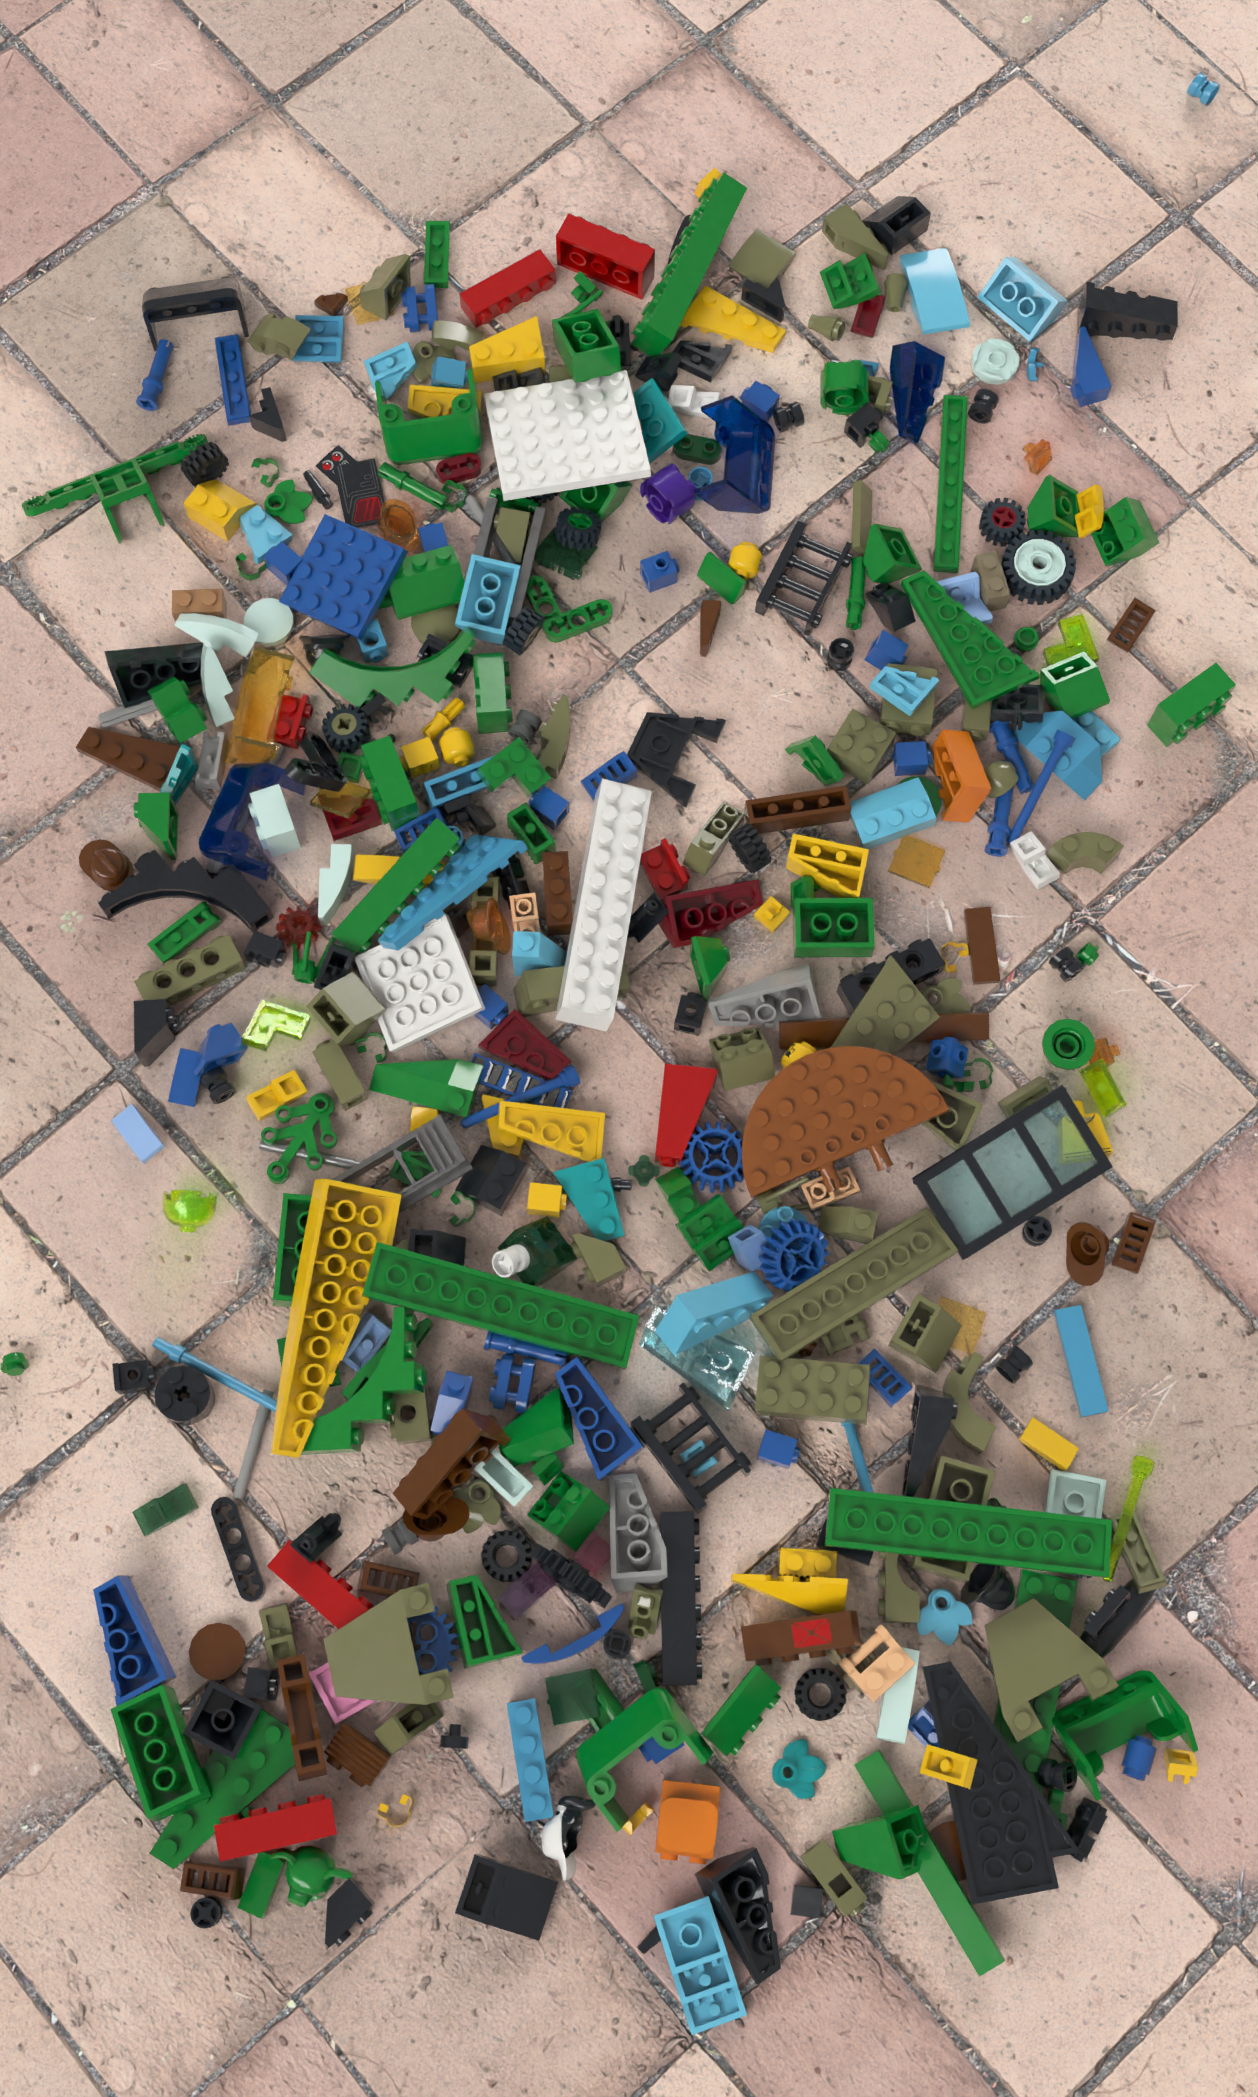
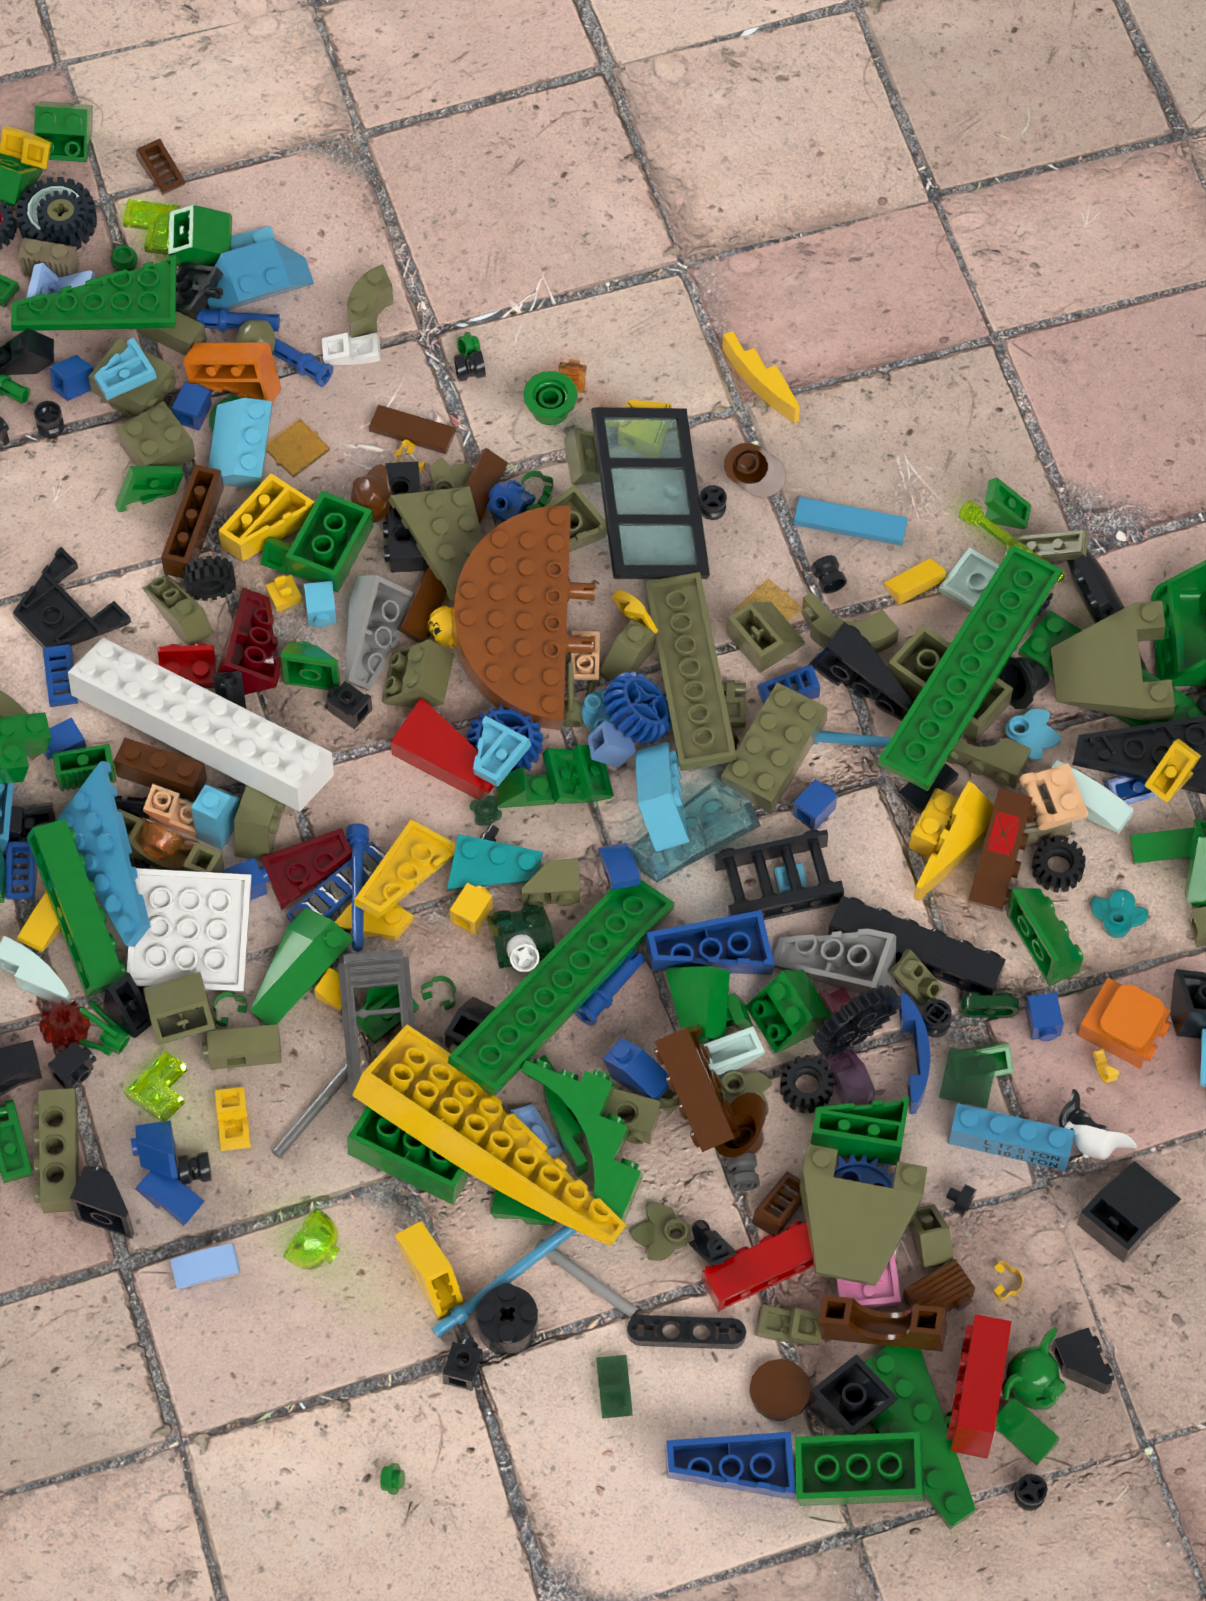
camera: 65 degrees left, 10 degrees down
(204, 1311) = (429, 1268): none -> yellow slope
(234, 1874) = (1012, 1455): reddish brown slope -> none
(261, 1684) = (830, 1354): black brick -> none
(301, 1133) = (288, 1107): green plant -> none
(317, 1486) = (657, 1232): none -> olive plate
(493, 1178) = (429, 944): black slope -> none
(500, 1393) = (644, 1024): blue brick -> none
(638, 1305) = (619, 866): none -> blue slope
(650, 1716) = (1027, 1038): green windscreen -> none
(692, 1155) = (498, 751): none -> medium azure wing
(772, 948) = (320, 604): none -> medium azure brick
(888, 1212) = (633, 609): none -> yellow slope
(896, 939) = (373, 492): none -> reddish brown piece
(1028, 577) = (72, 217): none -> black wheel
(1061, 743) = (256, 263): blue piece -> none
(1103, 1088) = (605, 386): clear neon green slope -> none
(1139, 1220) = (758, 415): reddish brown slope -> none
(1164, 1496) = (1006, 506): none -> green slope
(1183, 1225) = (764, 381): none -> yellow slope
(1191, 705) = (275, 150): green brick -> none

